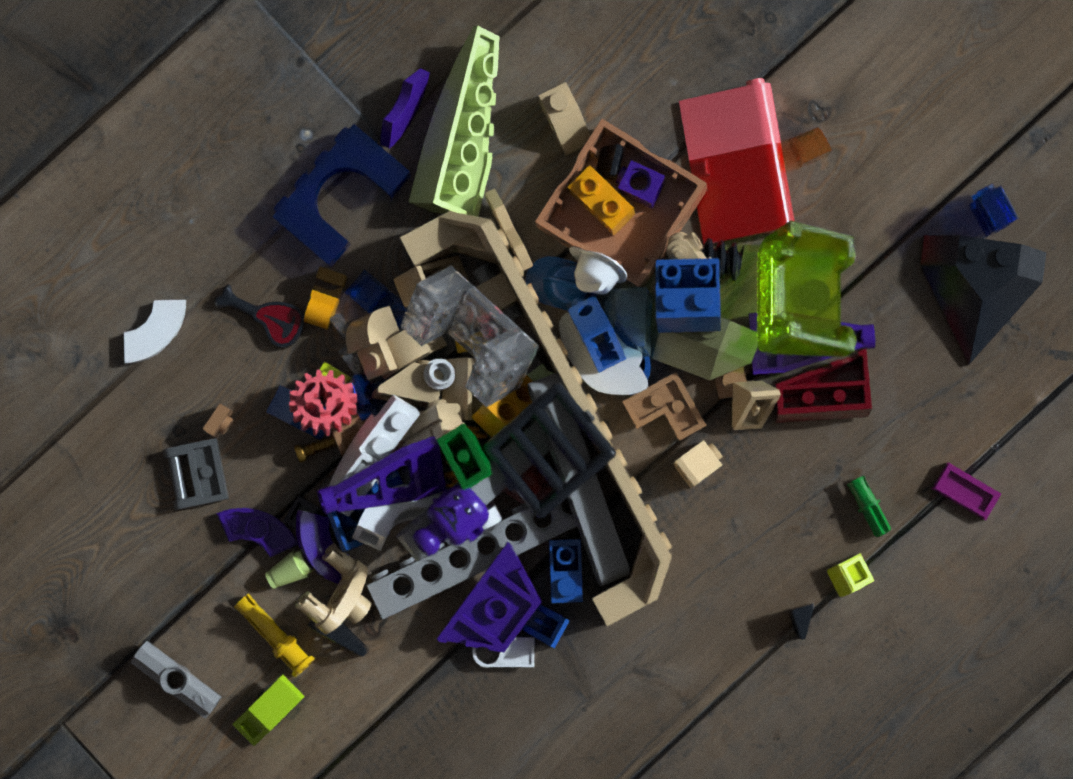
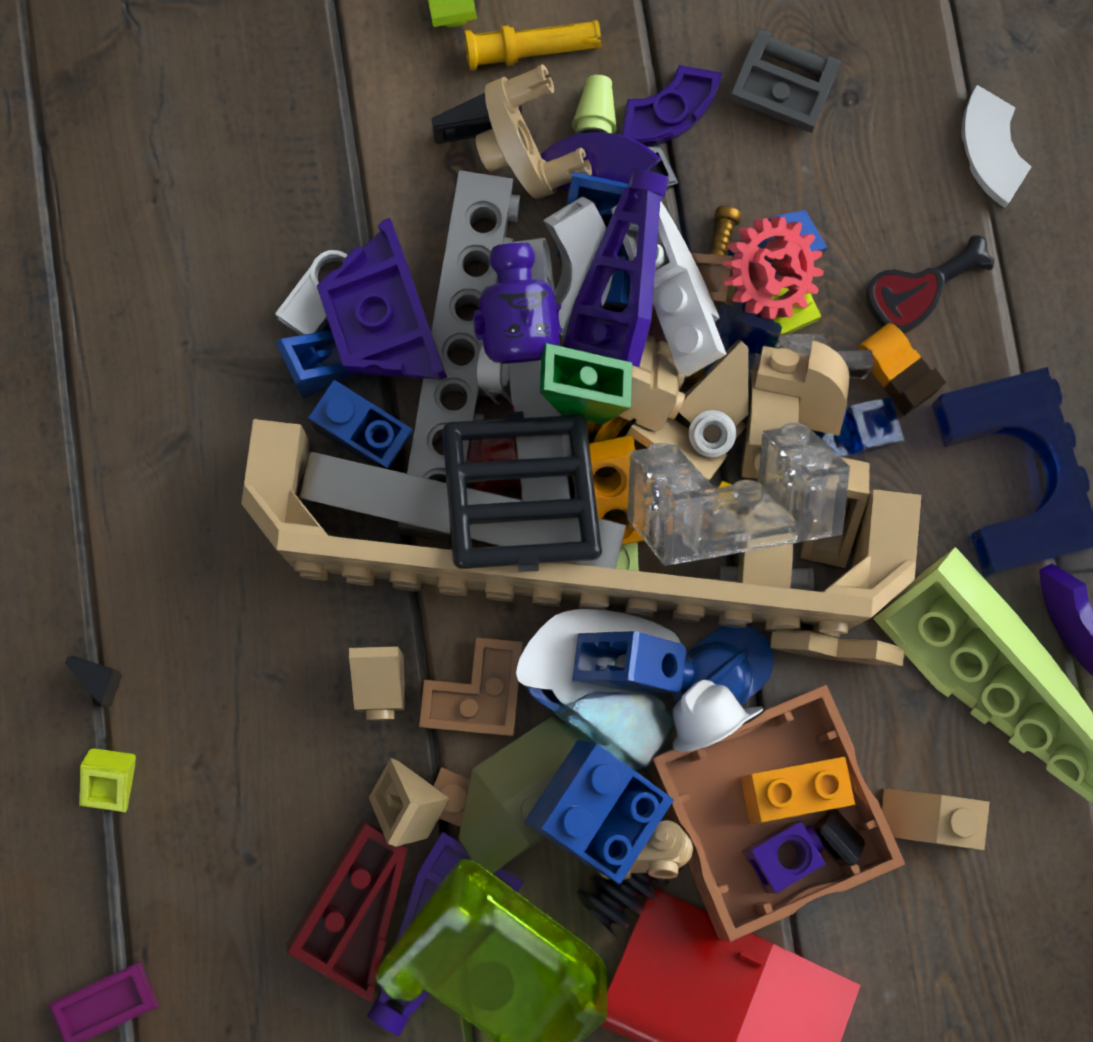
camera: 115 degrees right, 5 degrees down
(219, 421) = (832, 145): medium nougat plate -> none
(869, 506) = (172, 864): green axle -> none

